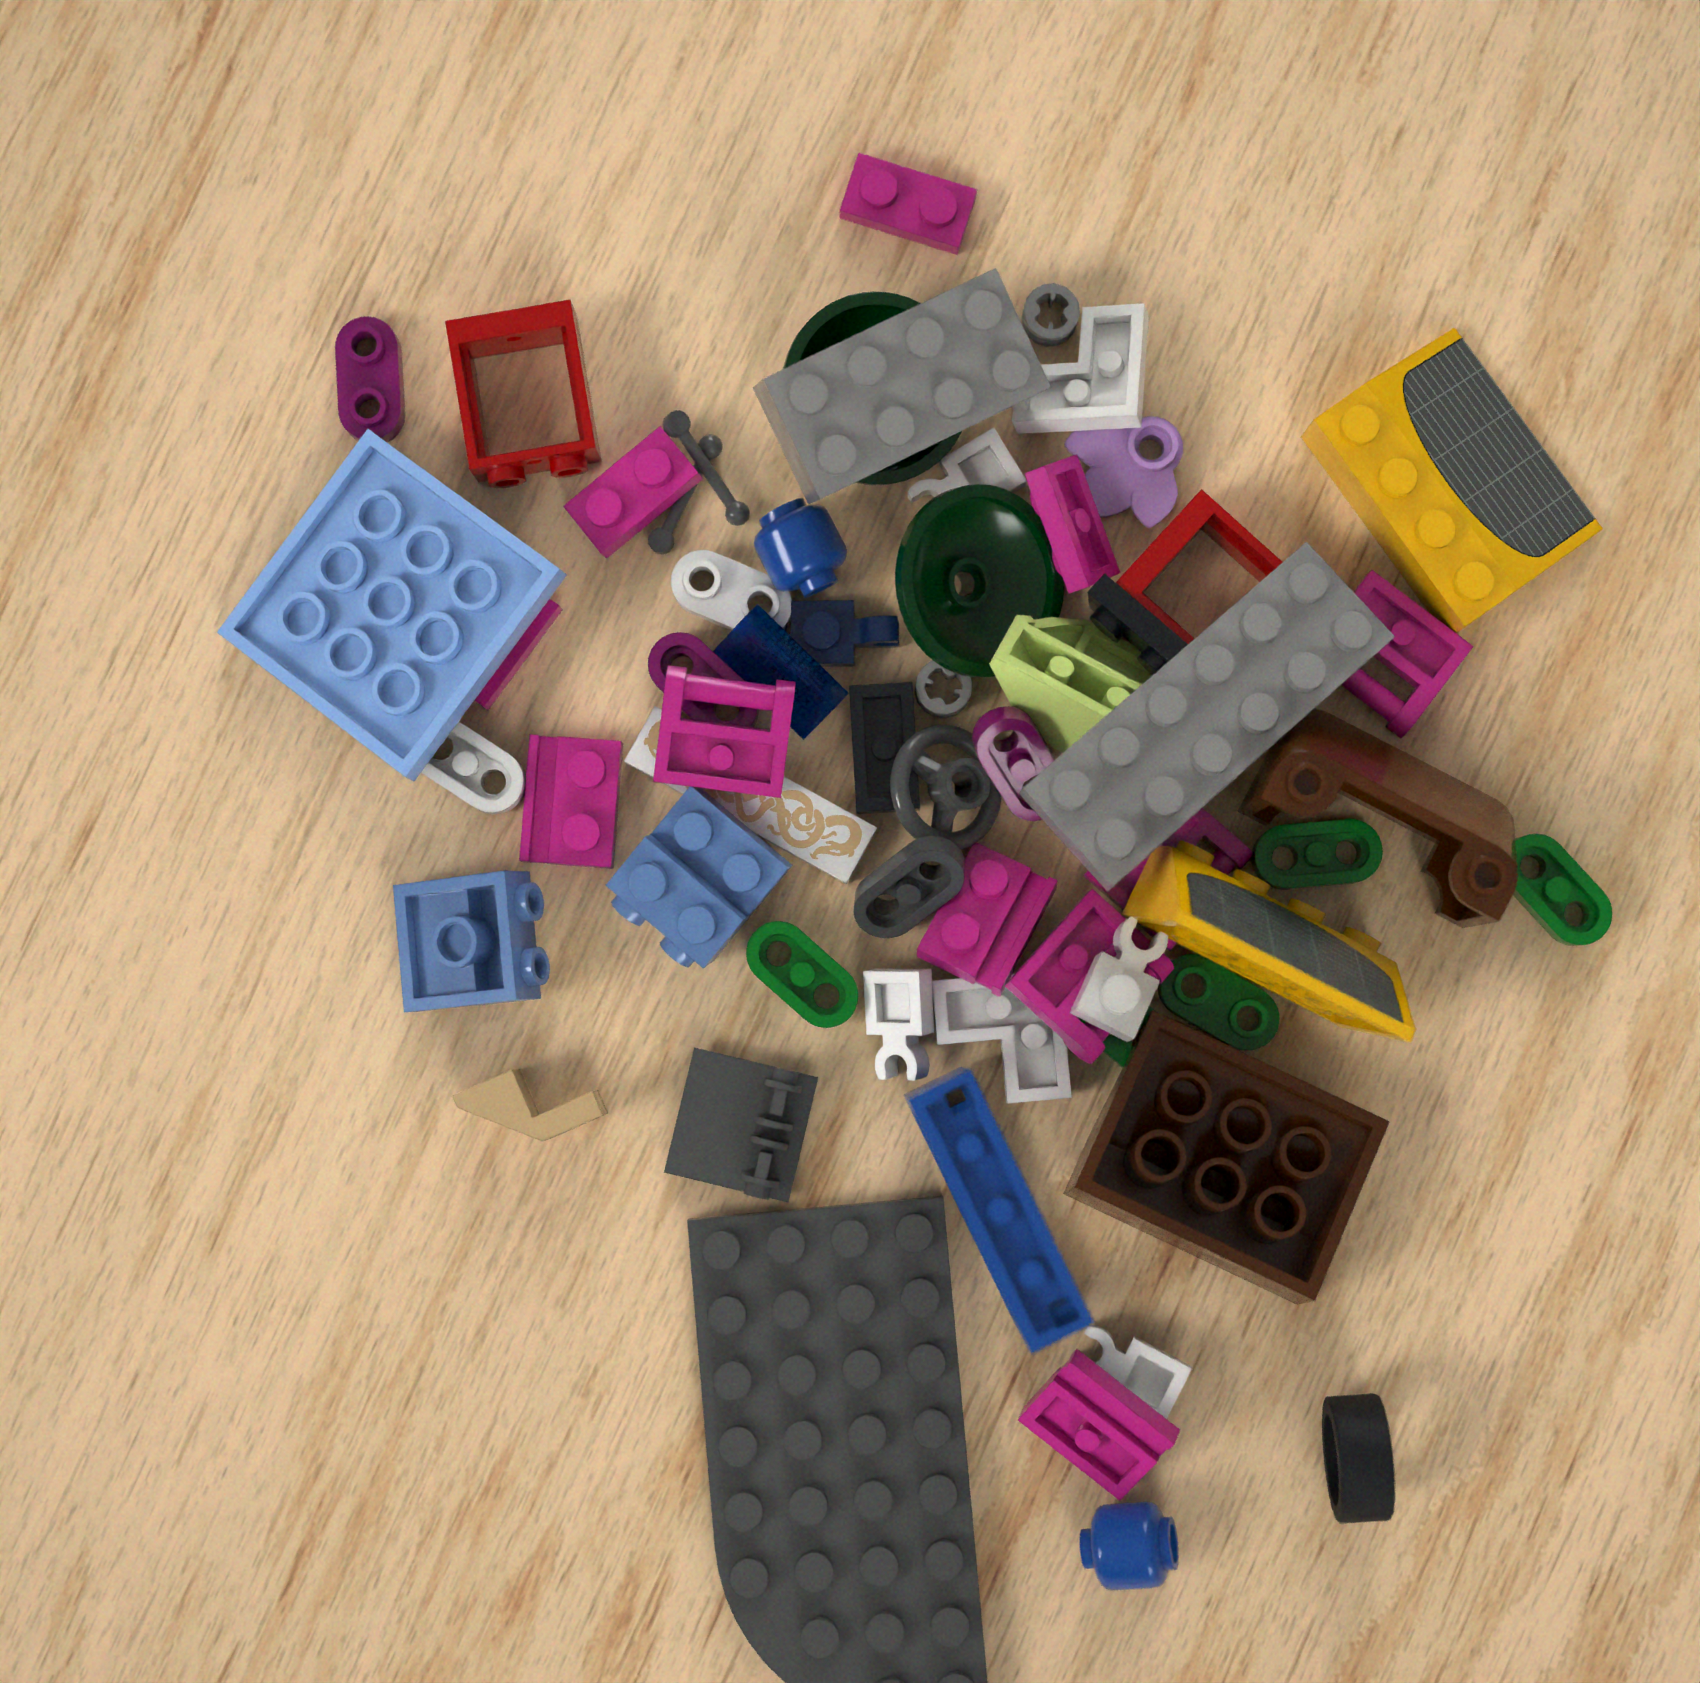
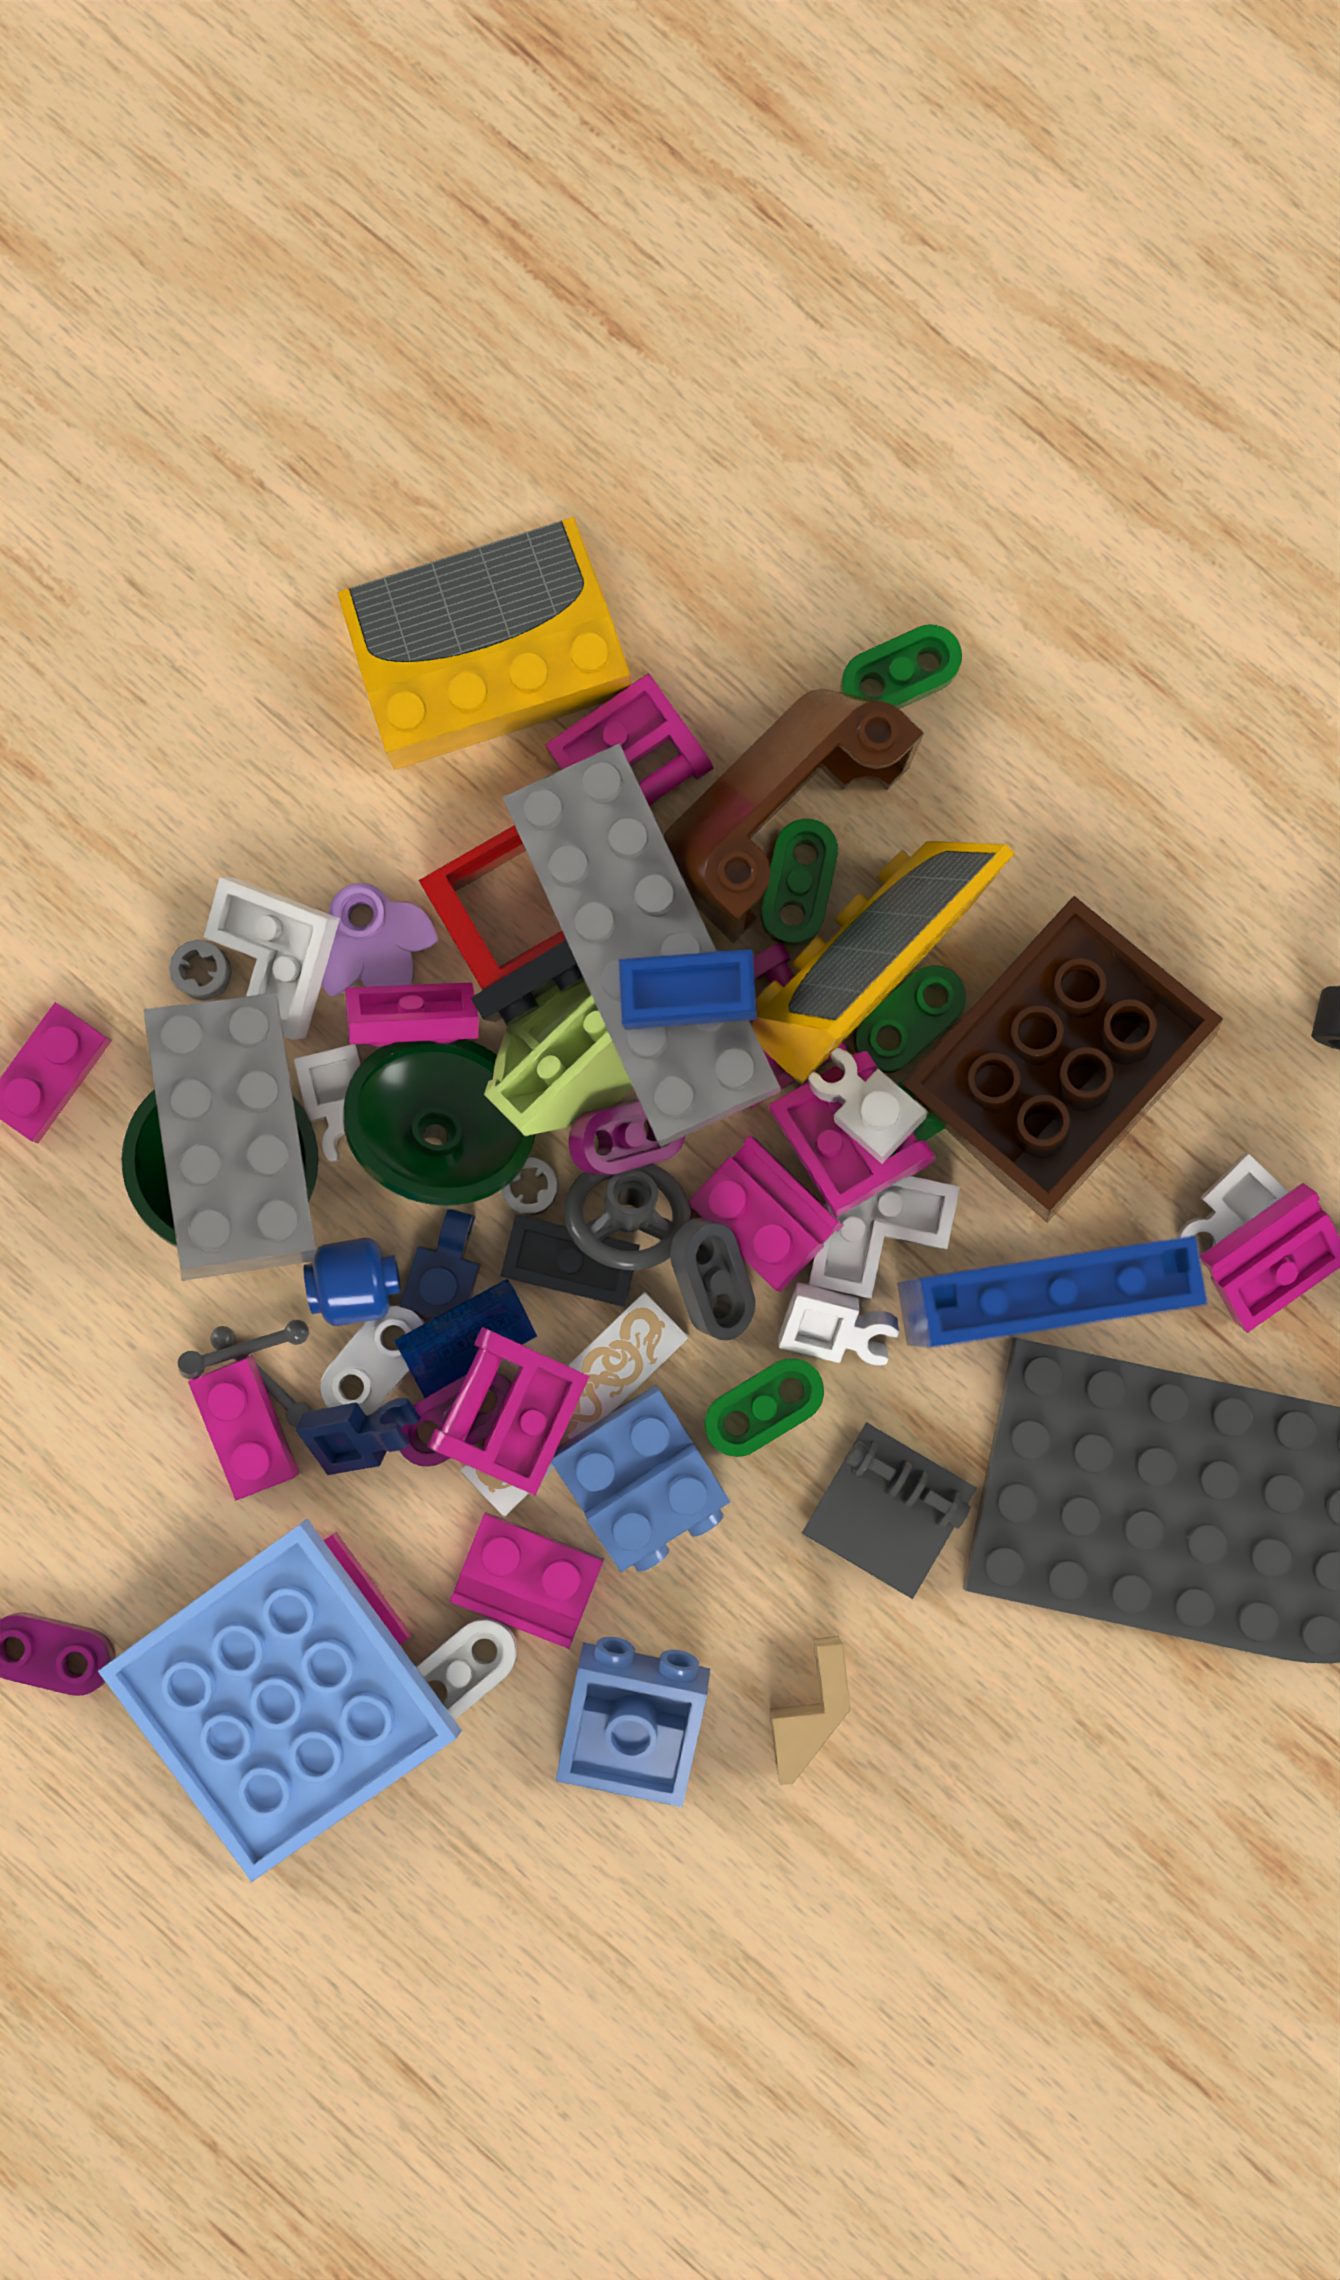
camera: 75 degrees left, 0 degrees up
(509, 333) = (48, 1496): red window -> none
(652, 595) = (351, 1441): none -> dark blue plate
(1177, 770) = (687, 989): none -> blue tile

